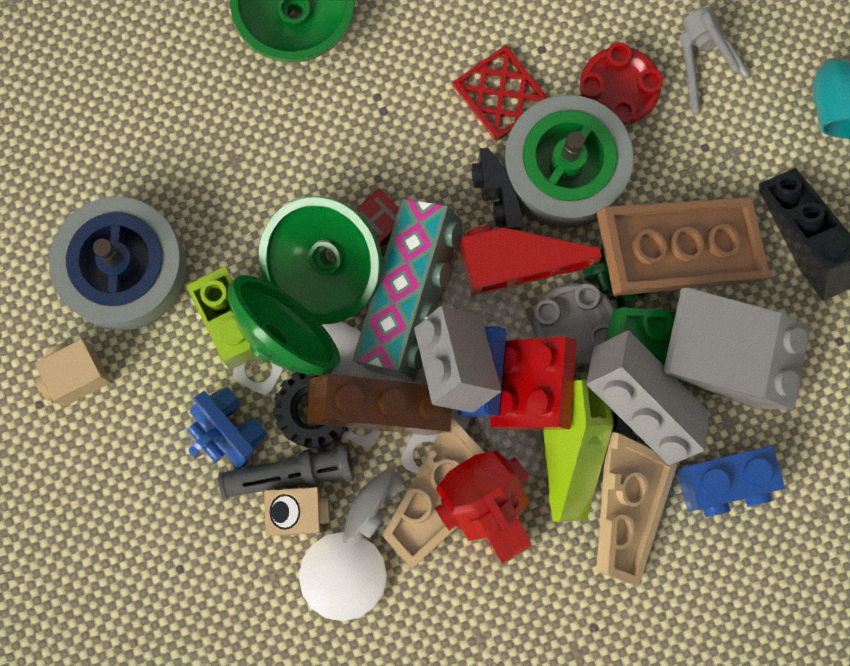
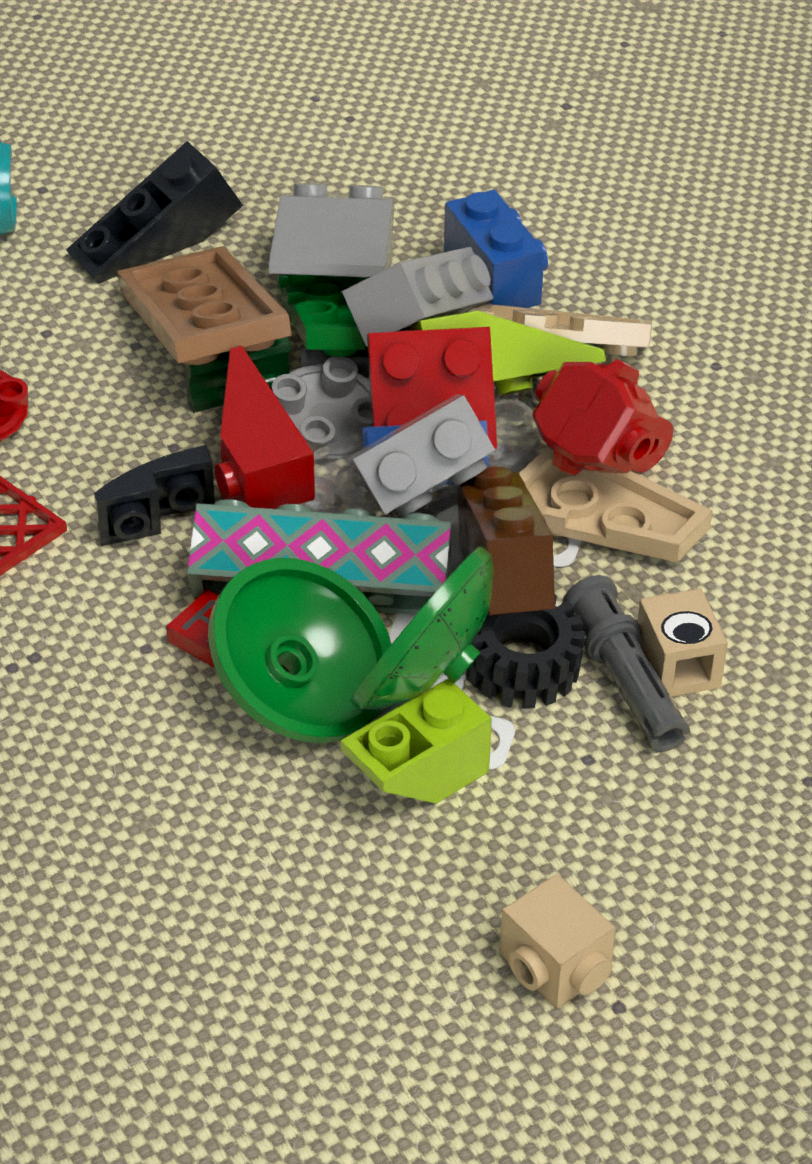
camera: 100 degrees left, 35 degrees down
(117, 263) = (361, 904): wheel -> none
(217, 434) = (593, 738): blue hips -> none
(342, 578) = (752, 591): white dish -> none
(363, 513) = (645, 542): light grey dish -> none
(568, 160) = (91, 420): wheel -> none

